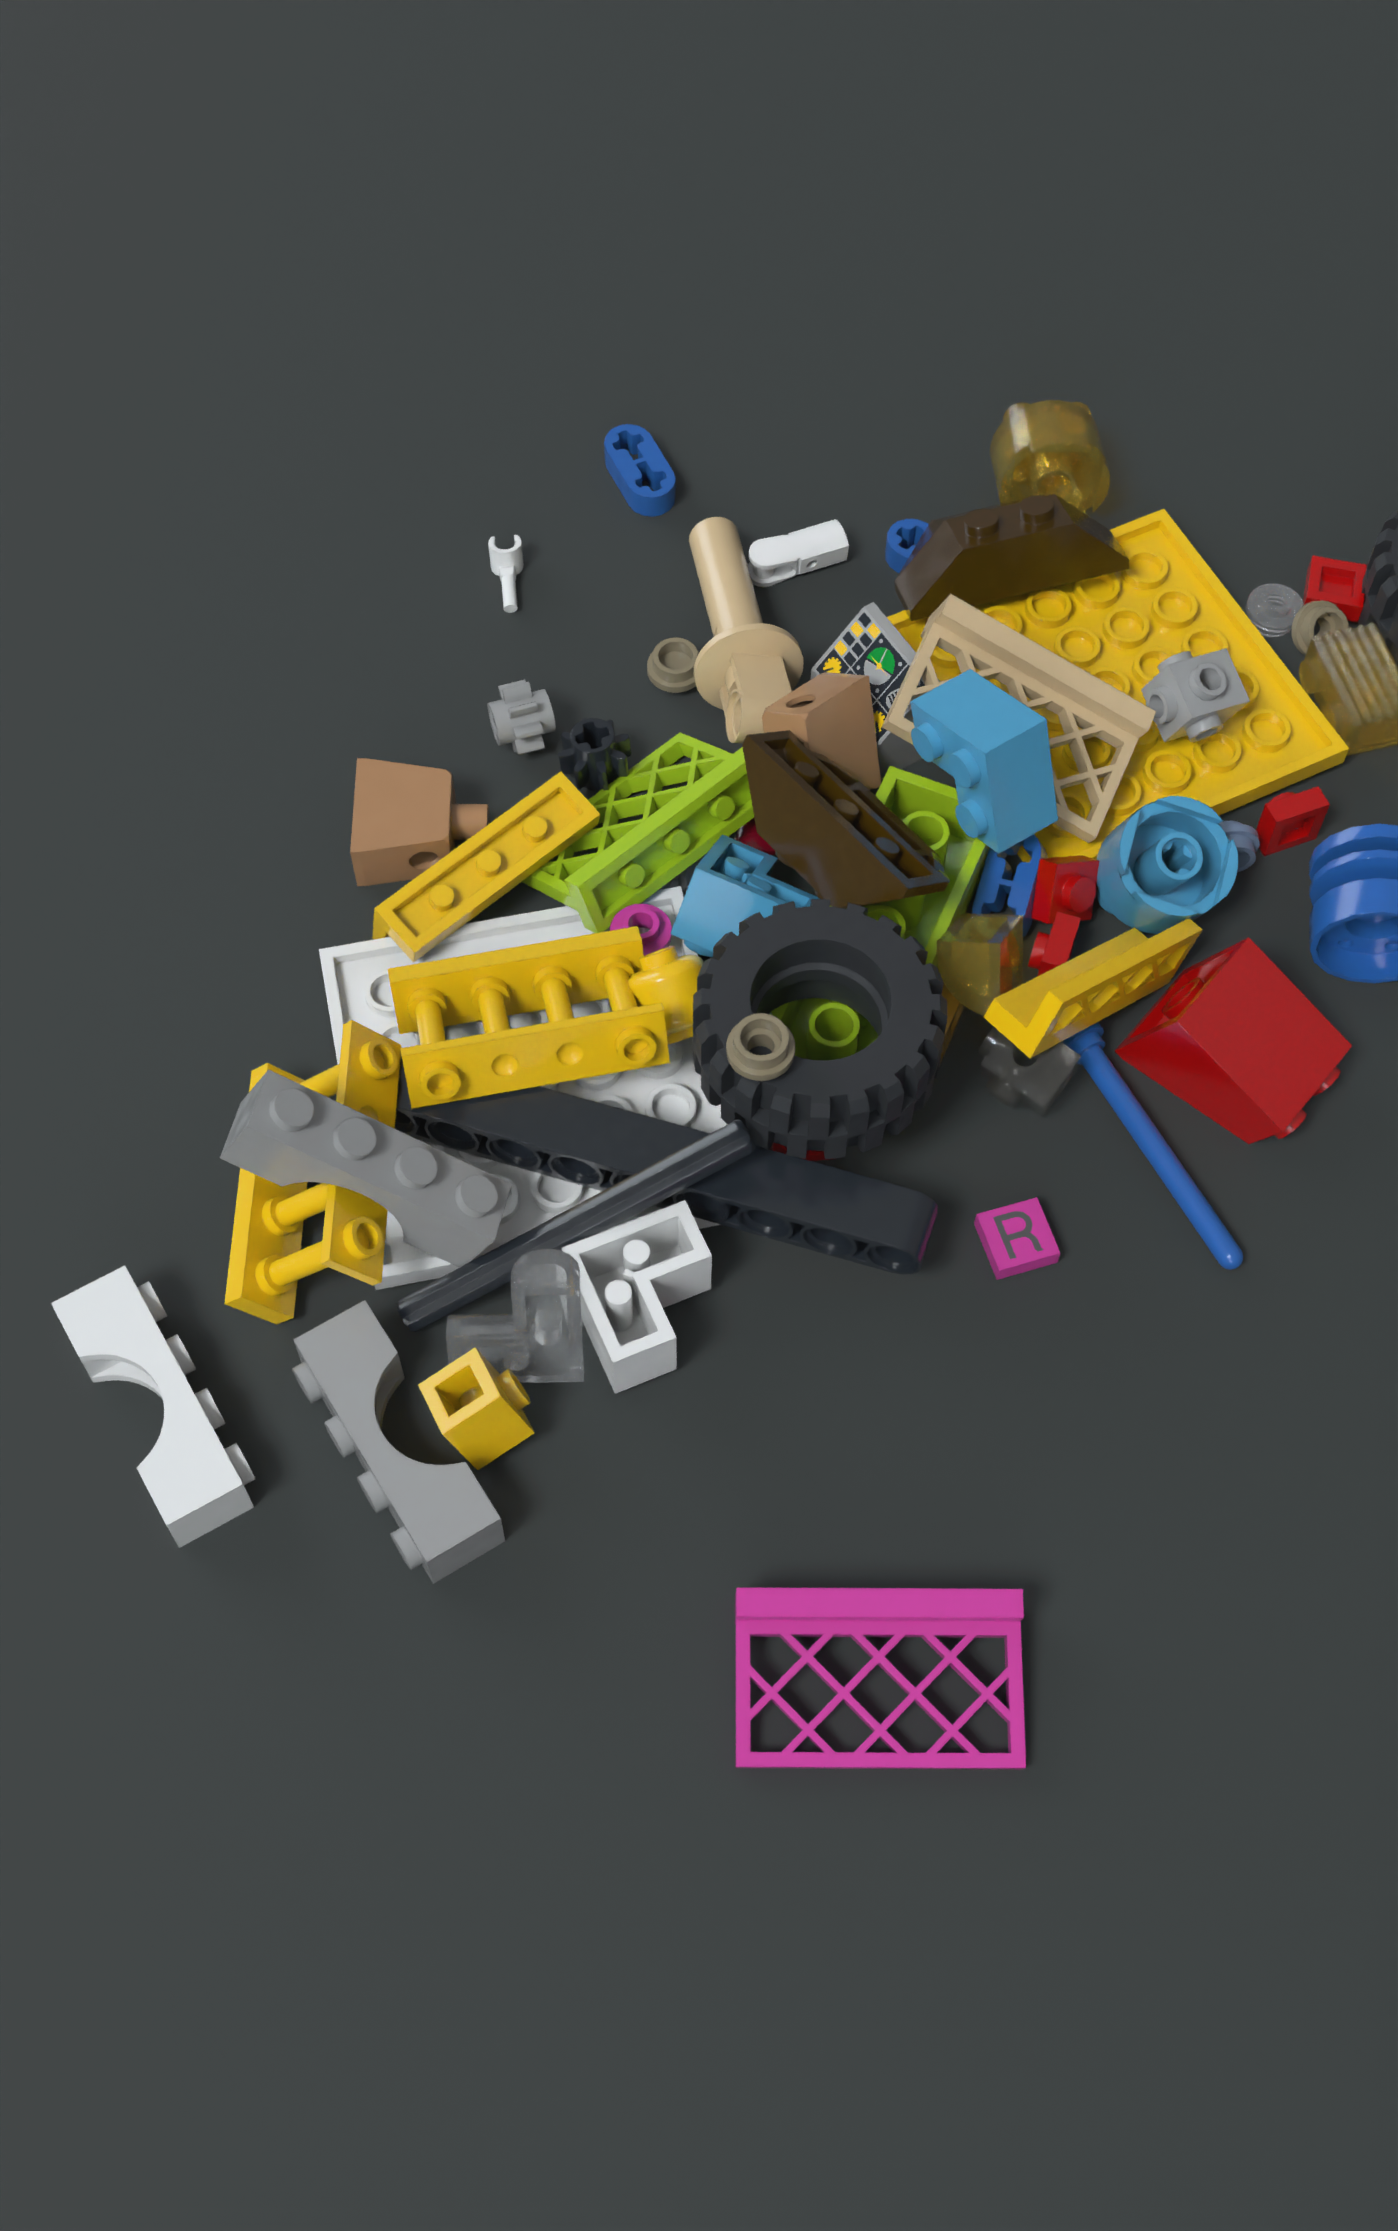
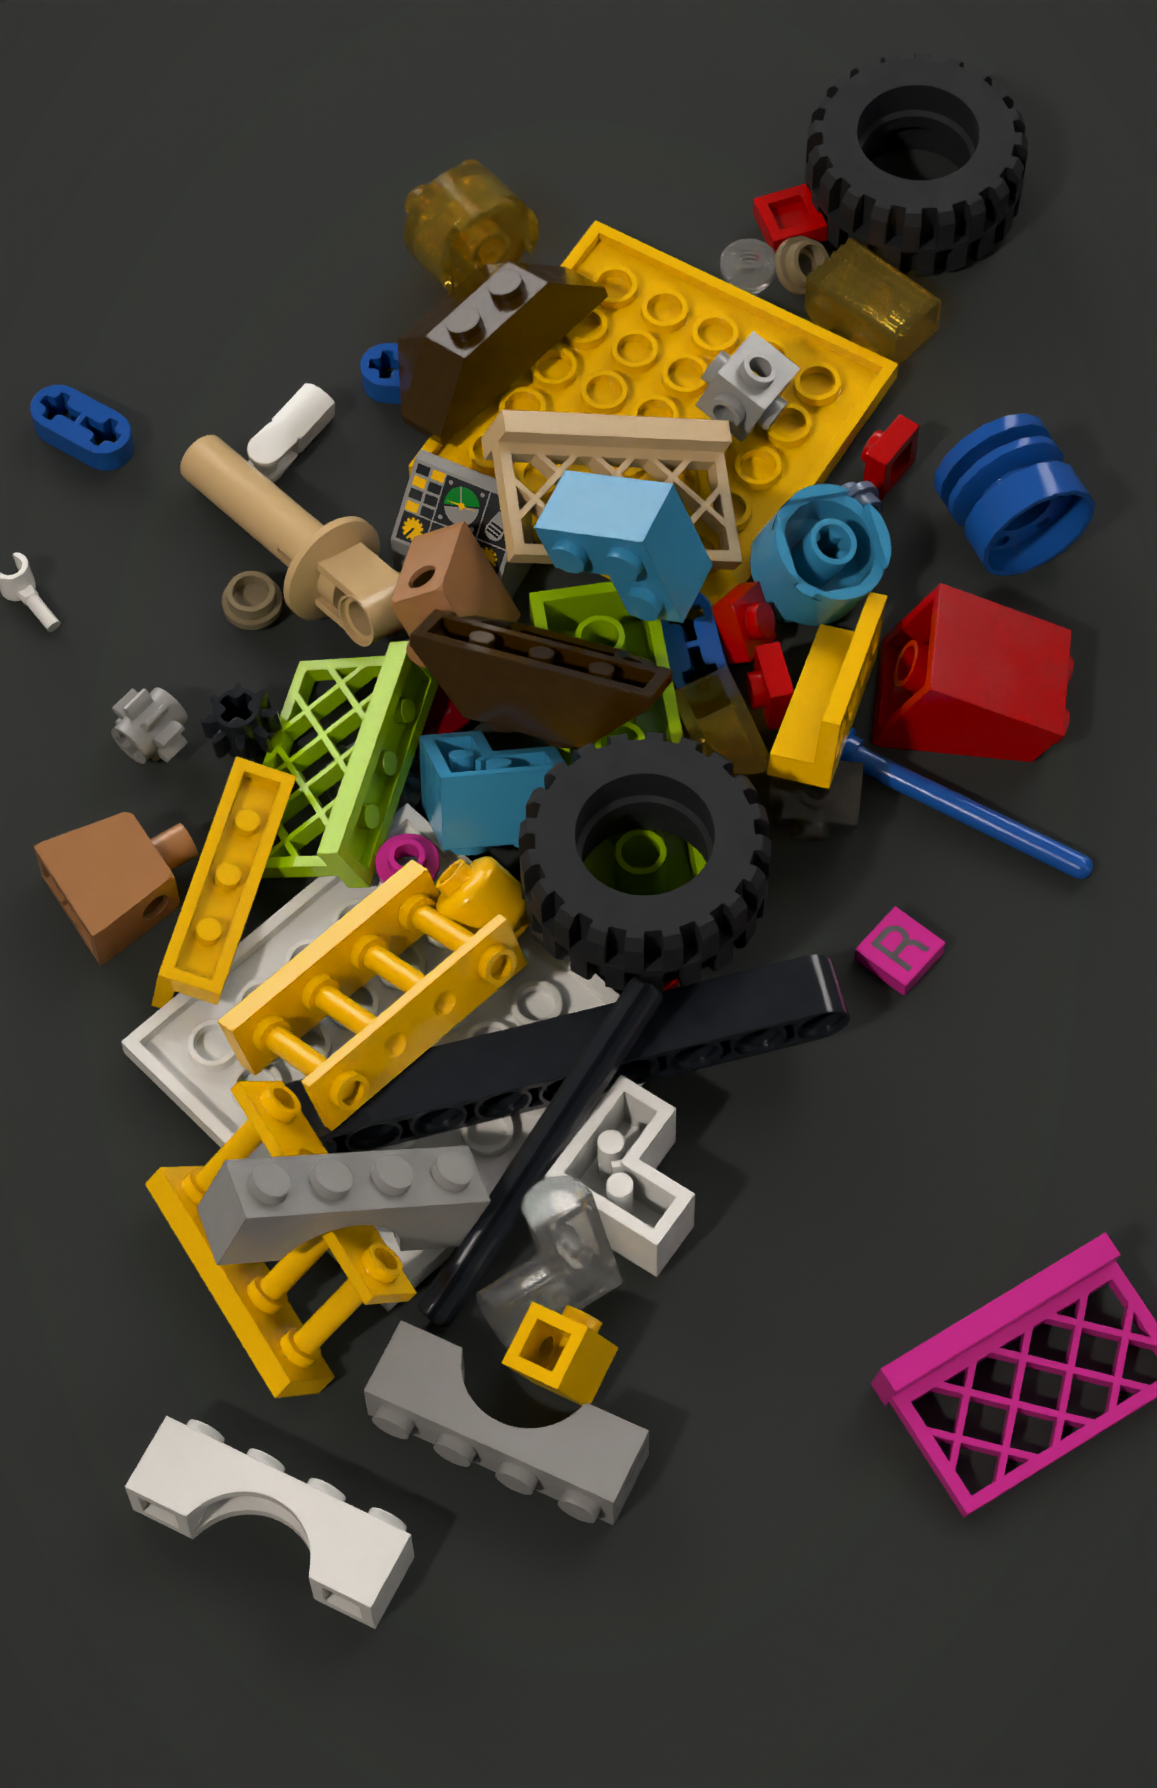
camera: 30 degrees left, 0 degrees up
(760, 1031) = (629, 886): dark tan plate -> none

